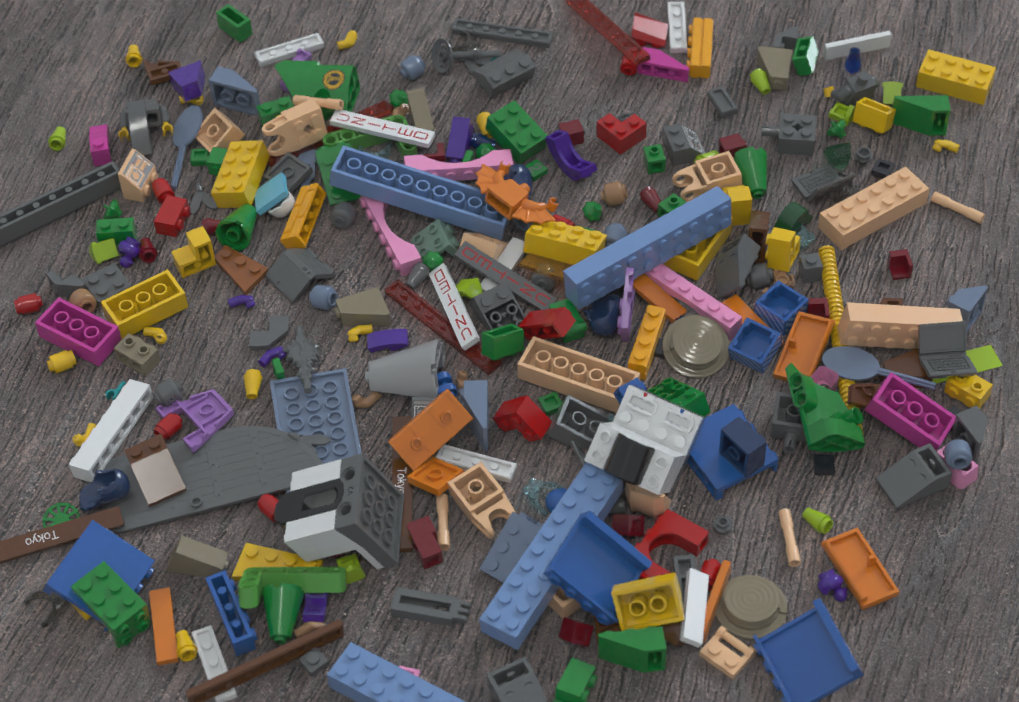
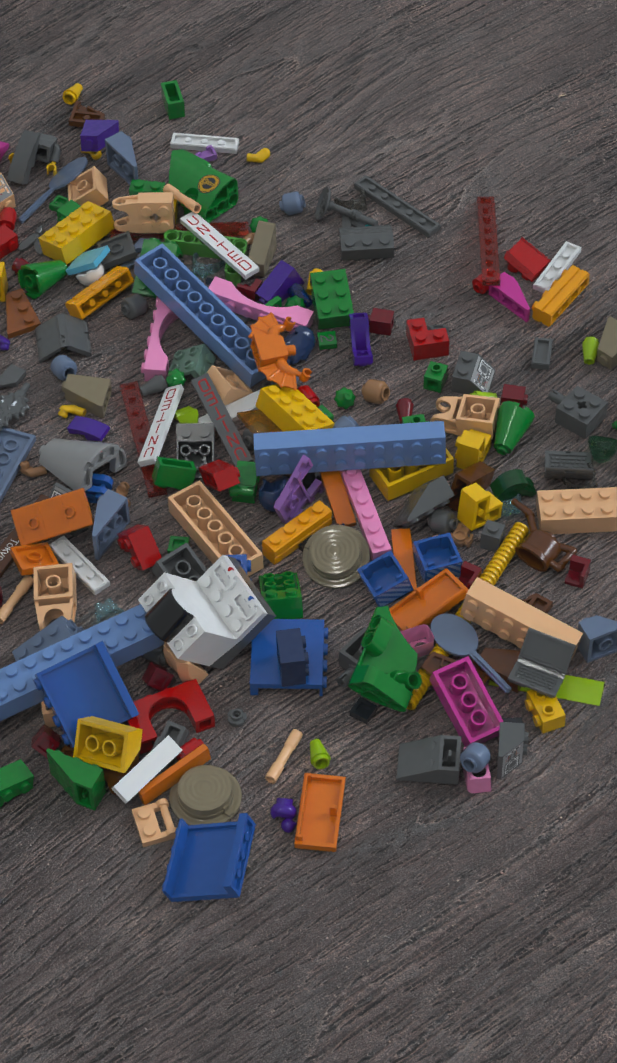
camera: 30 degrees right, 0 degrees up
(855, 259) = (540, 546): none -> reddish brown piece

